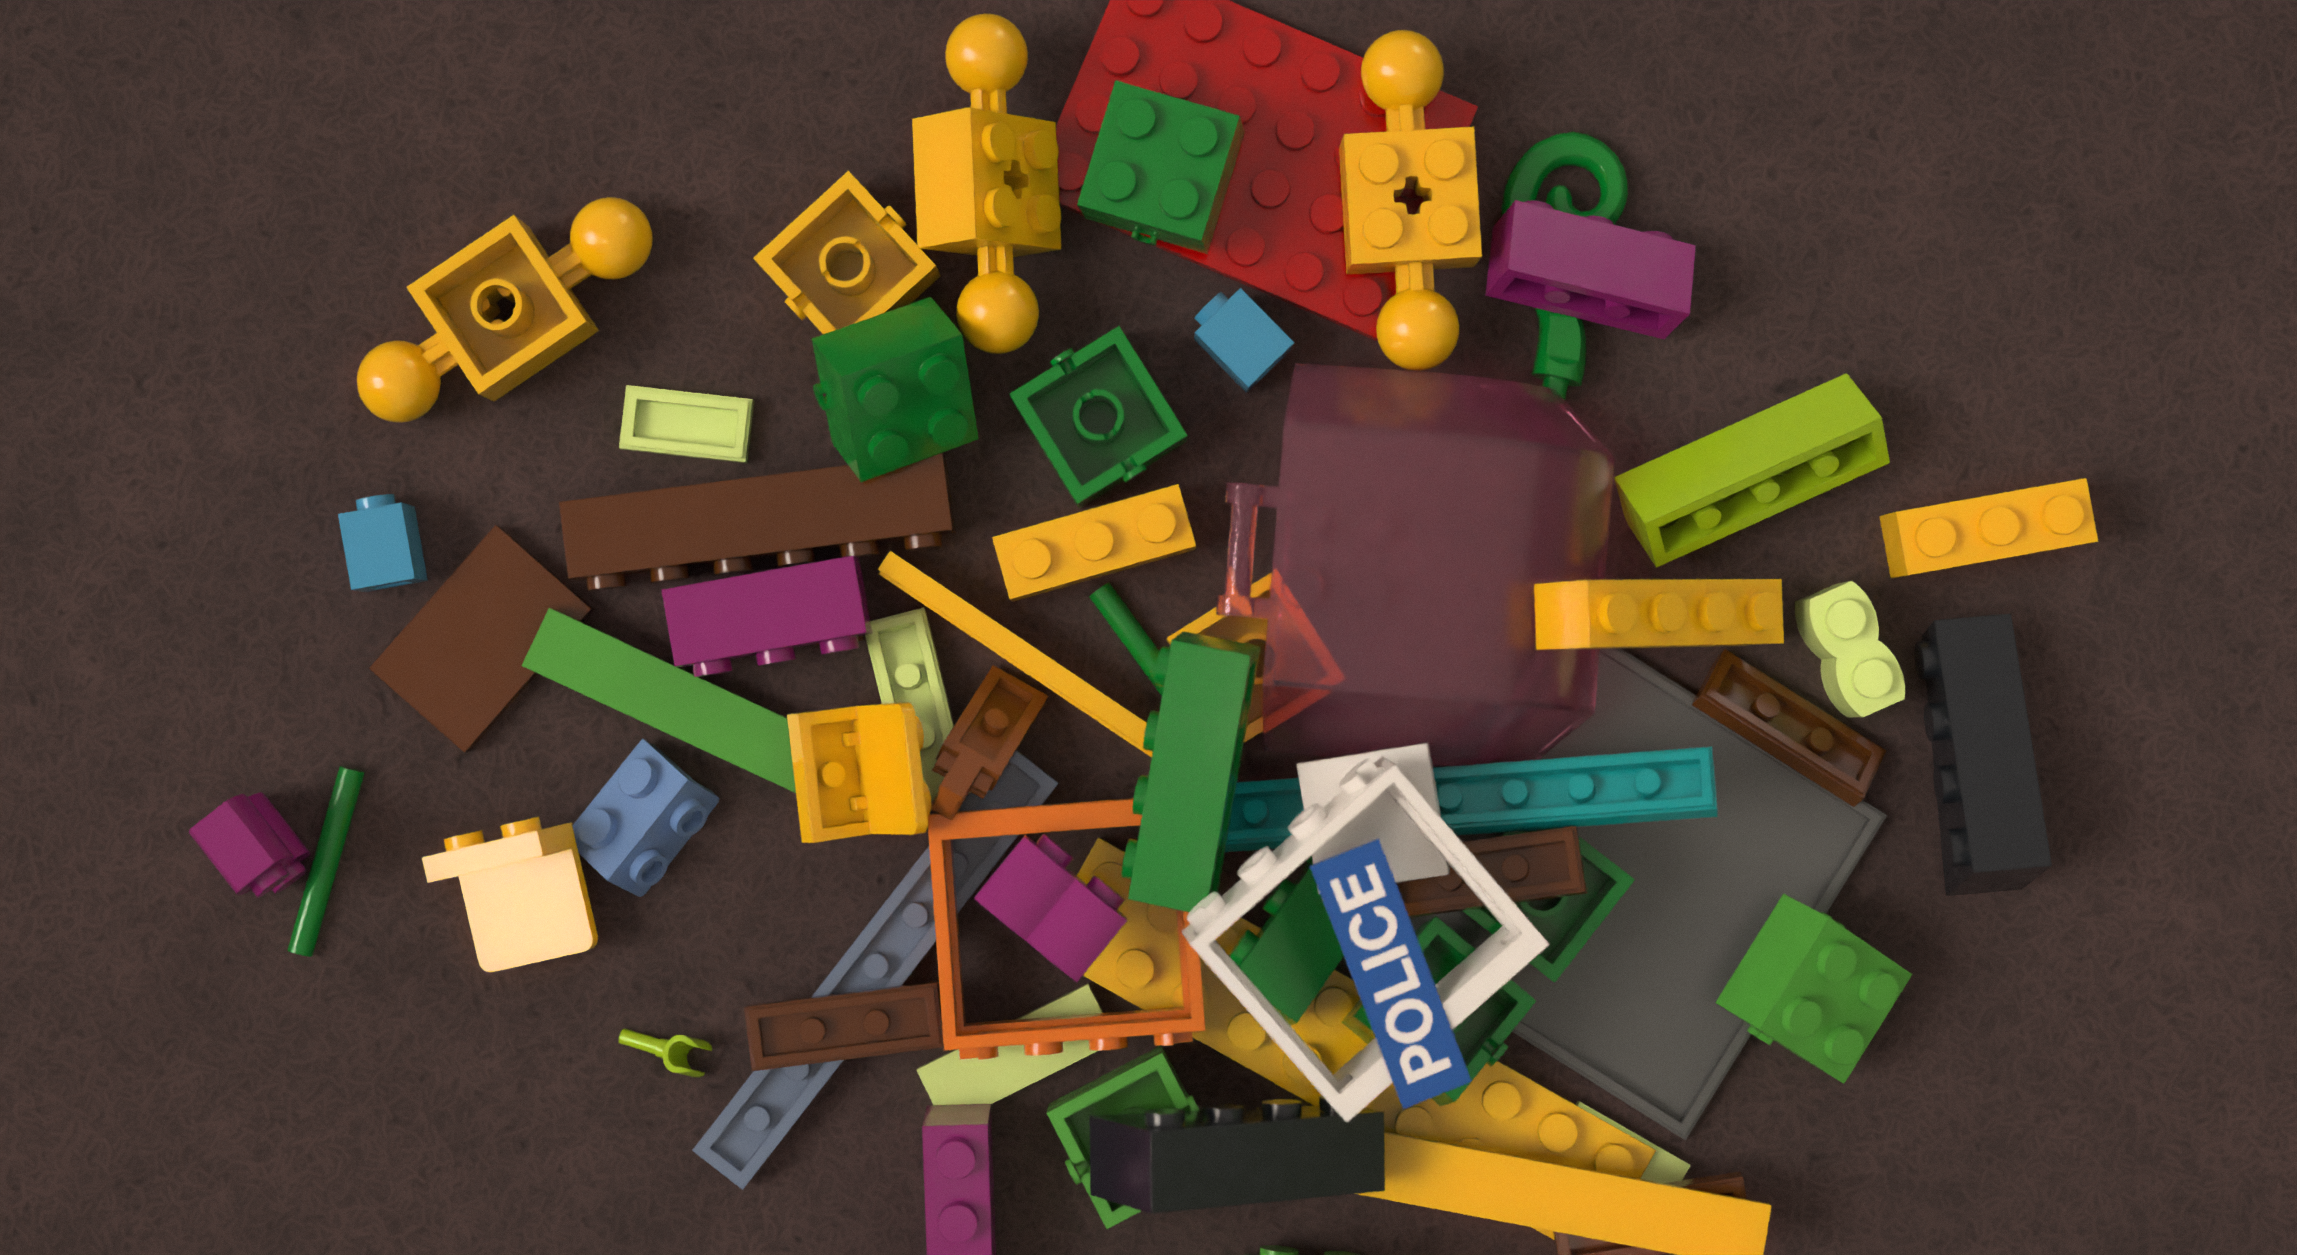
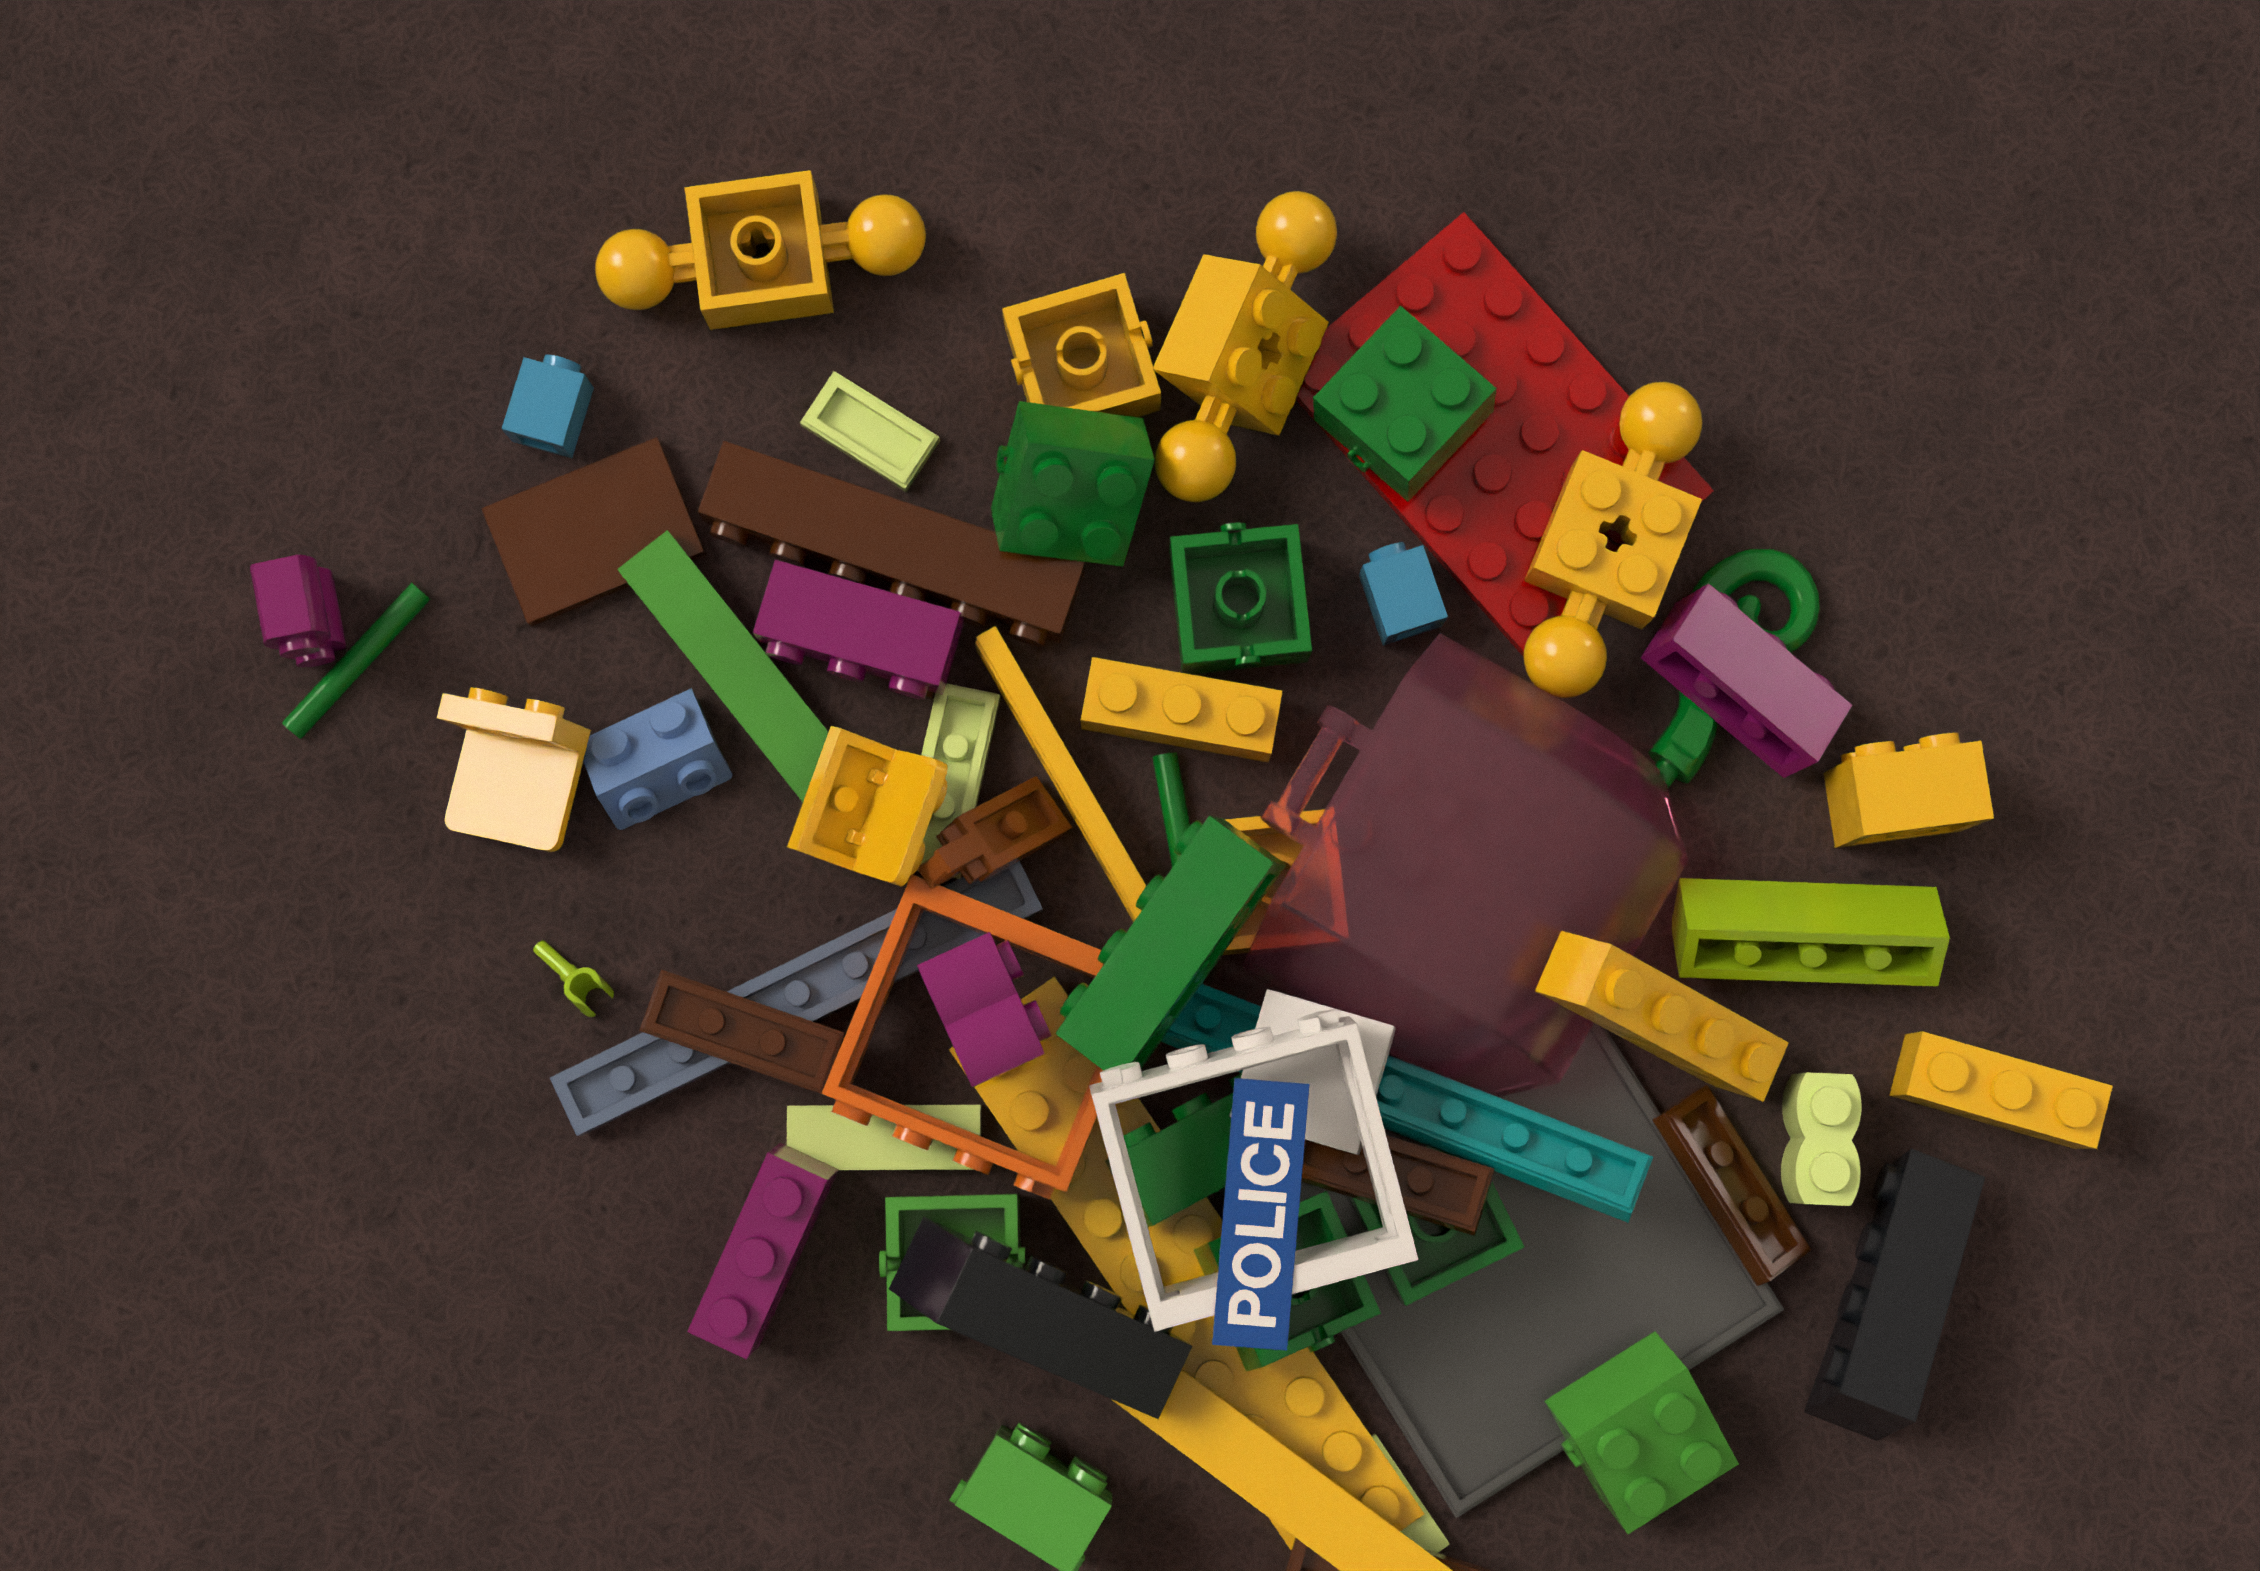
camera: 30 degrees right, 5 degrees down
(1795, 295) = (1908, 793): none -> yellow brick

